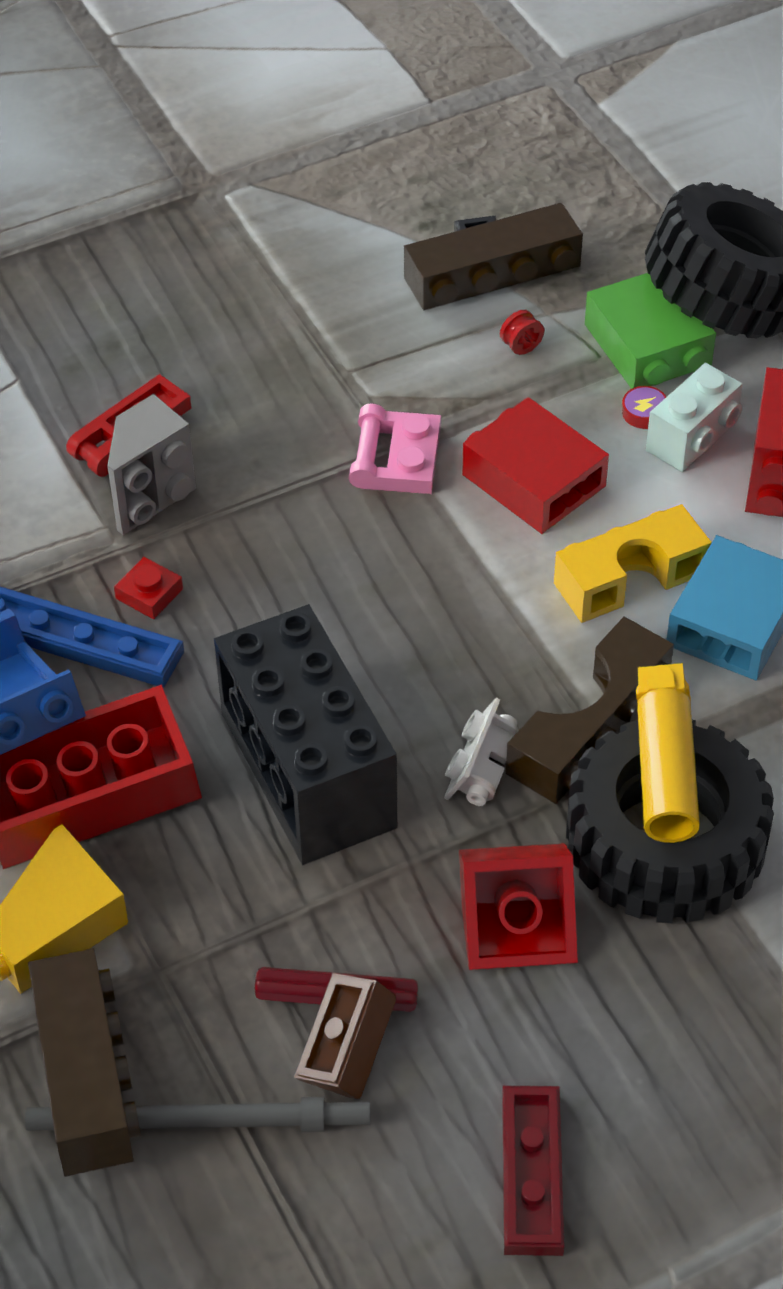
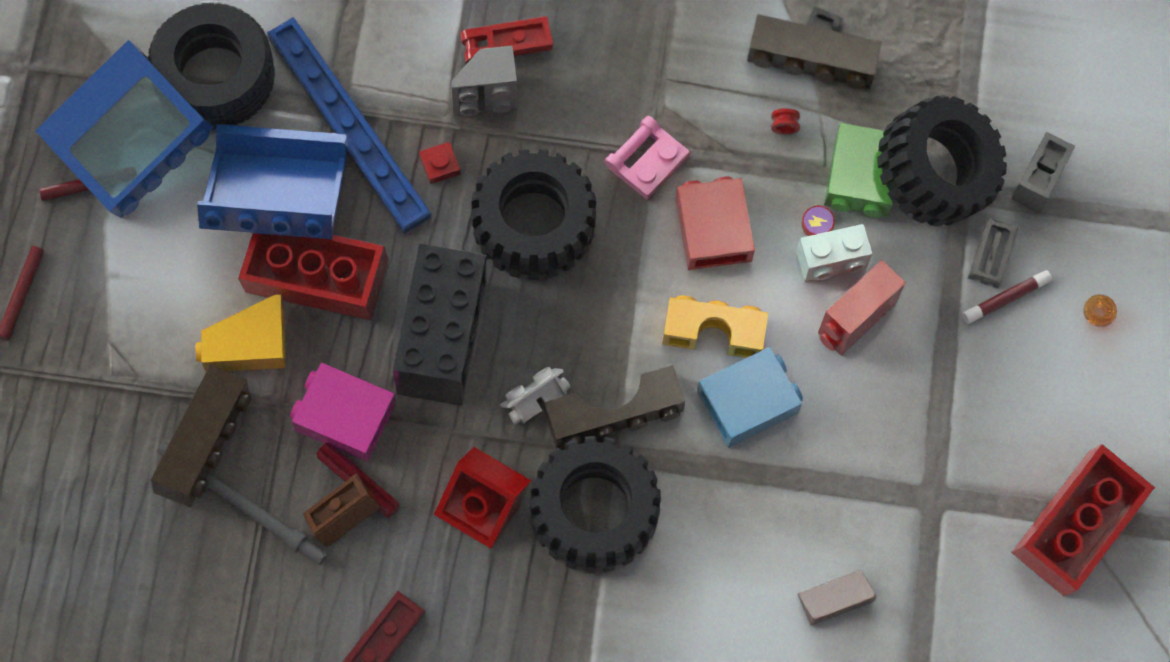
camera: 30 degrees right, 20 degrees up
(252, 917) = (343, 411): none -> dark pink brick
(315, 517) = (540, 175): none -> black tyre
(667, 754) = (604, 474): yellow piece -> none

